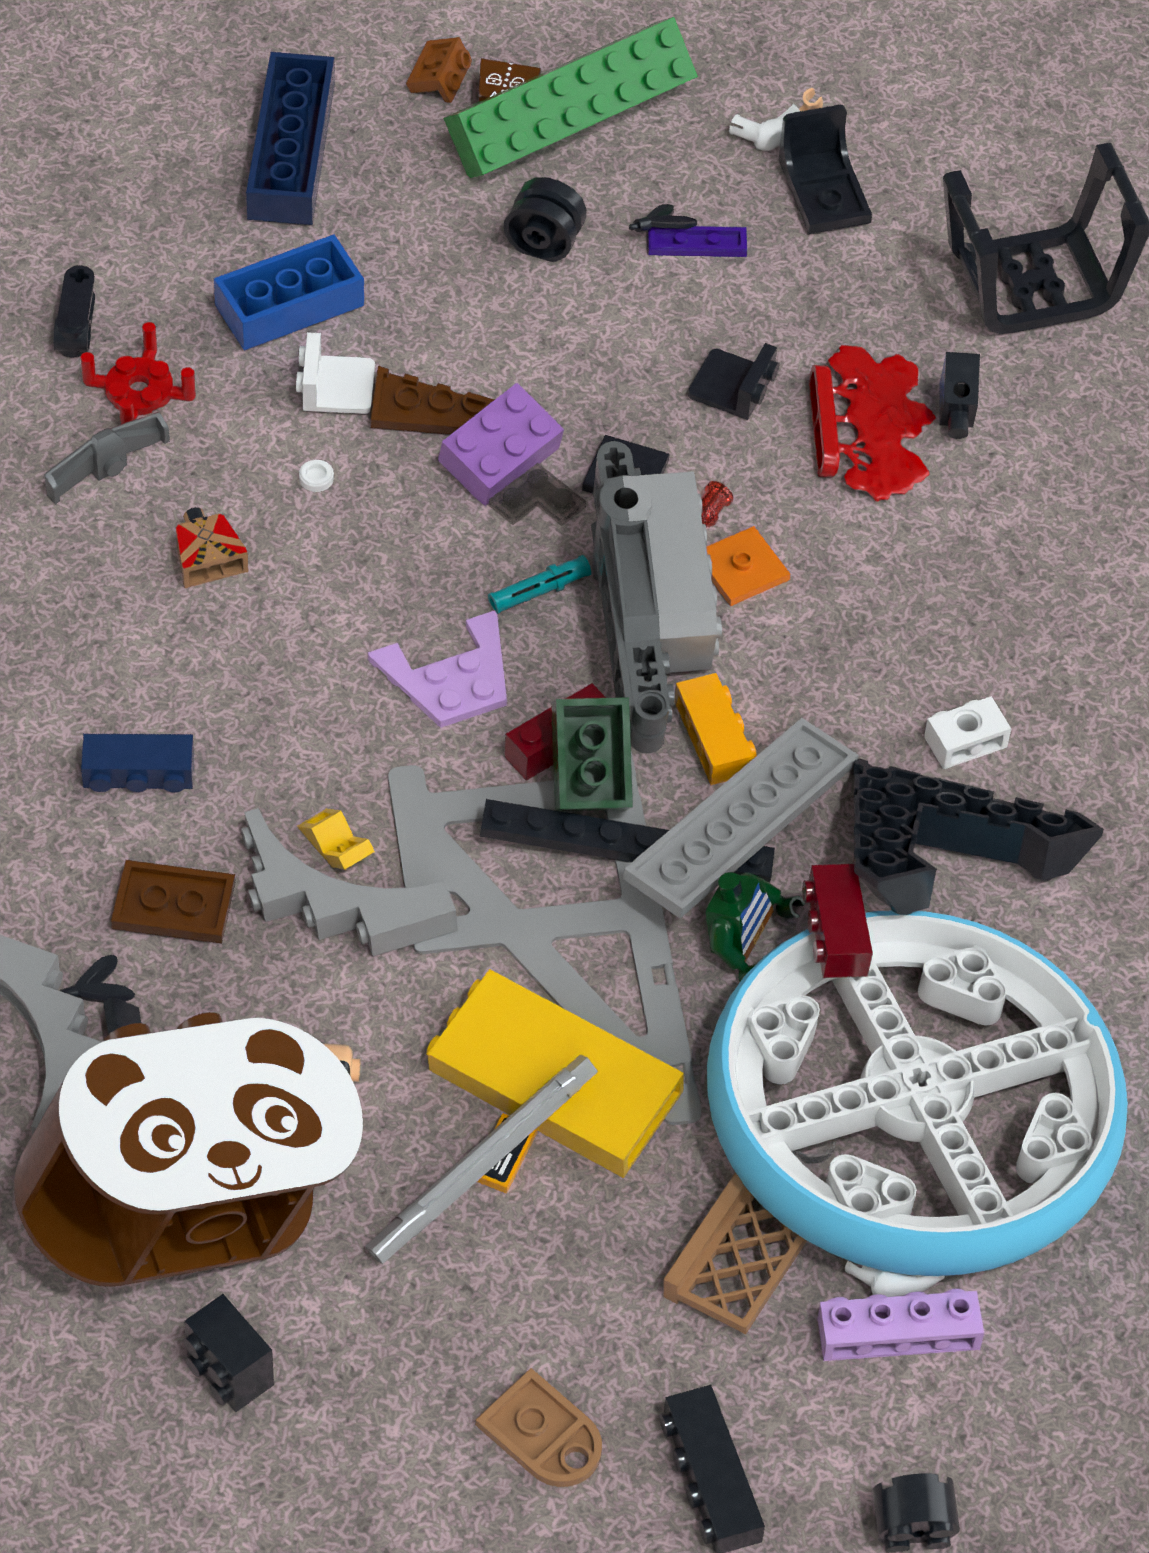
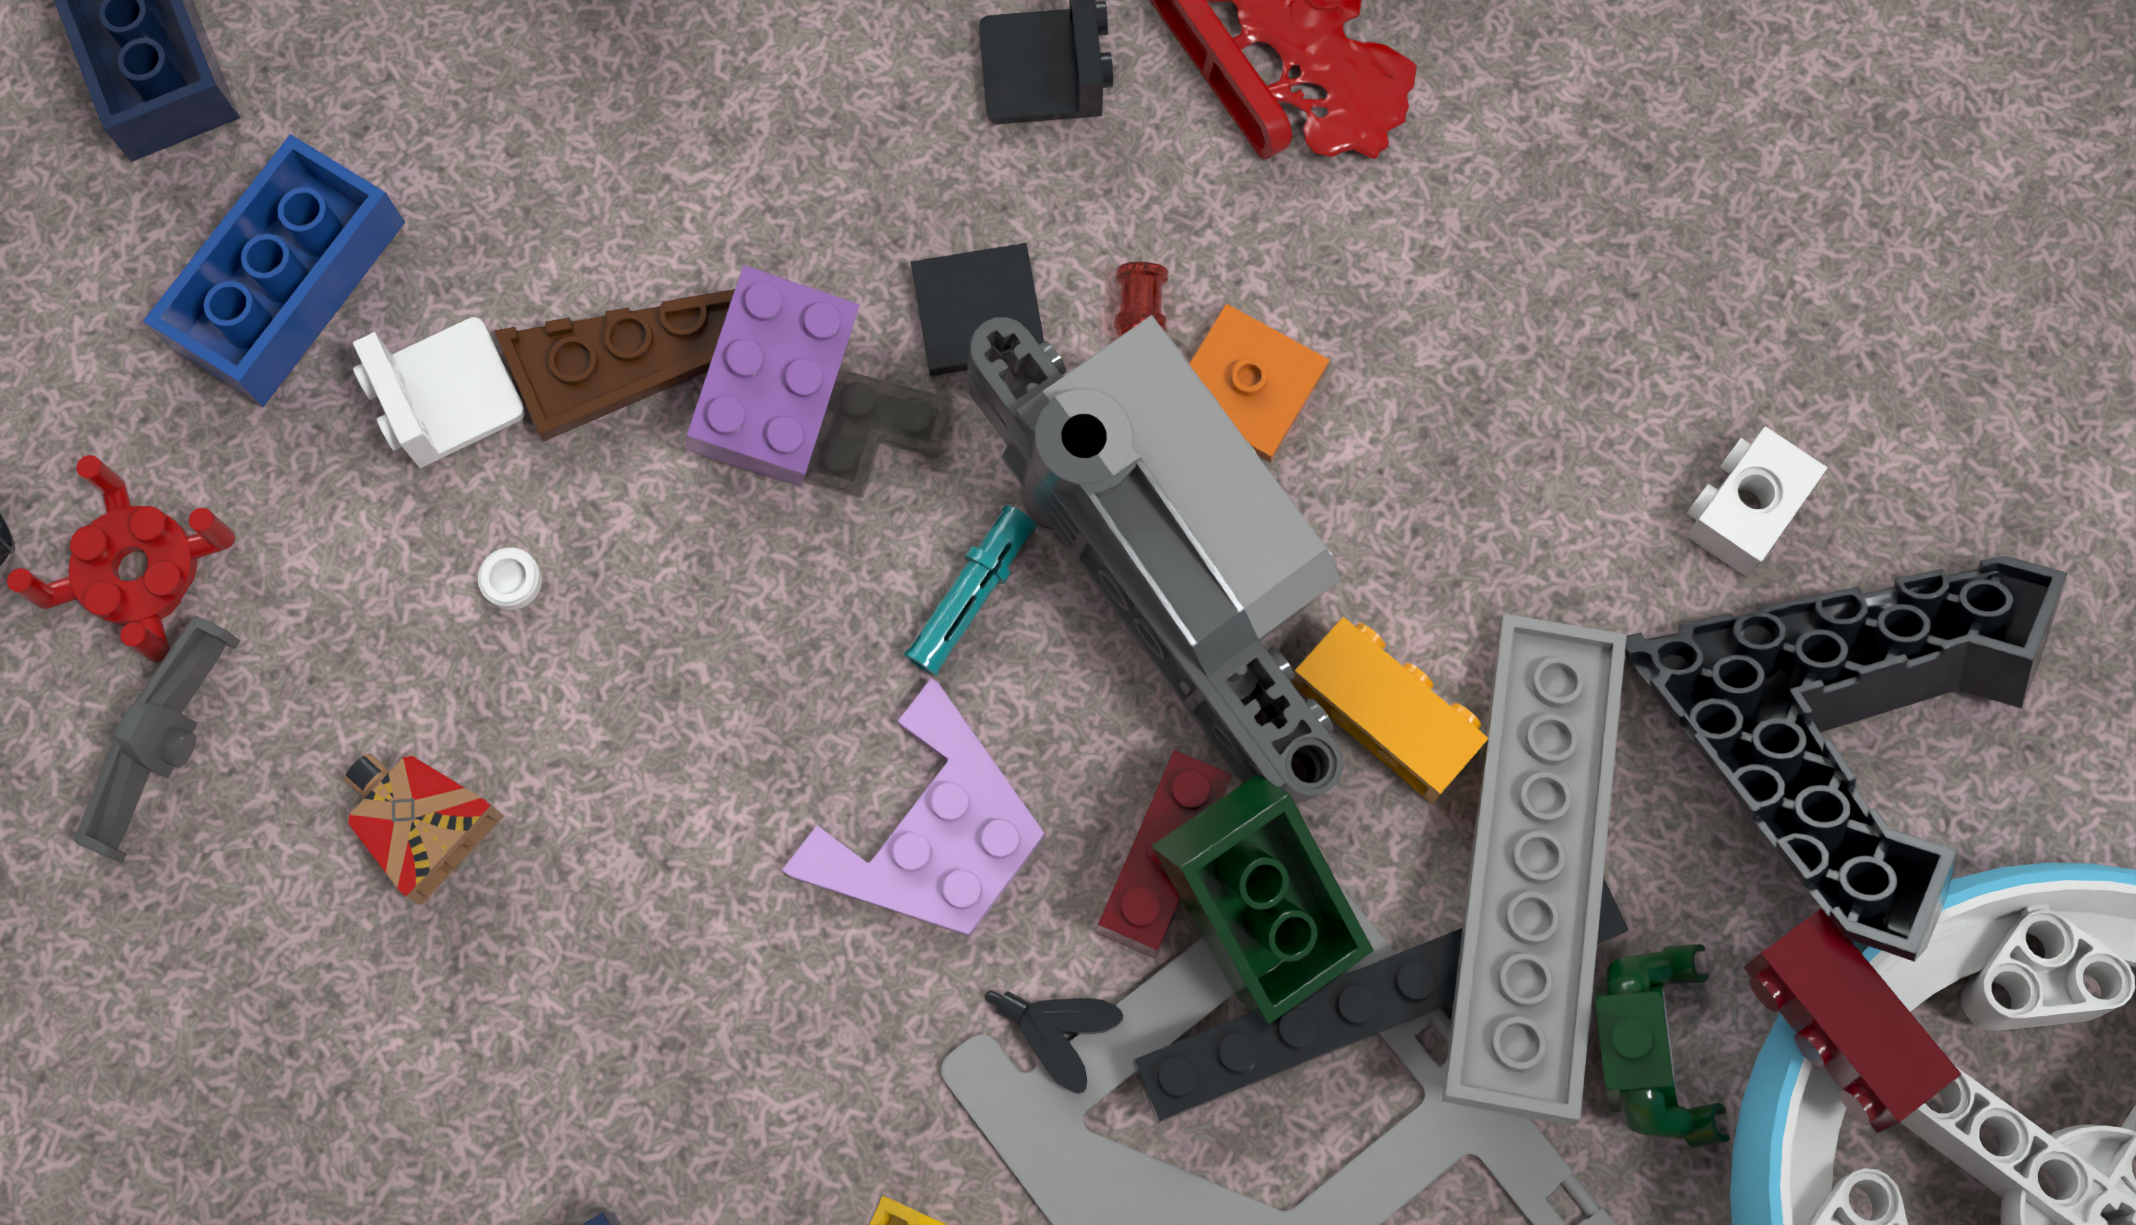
camera: 25 degrees left, 20 degrees up
(454, 776) = (1045, 1027): none -> black piece

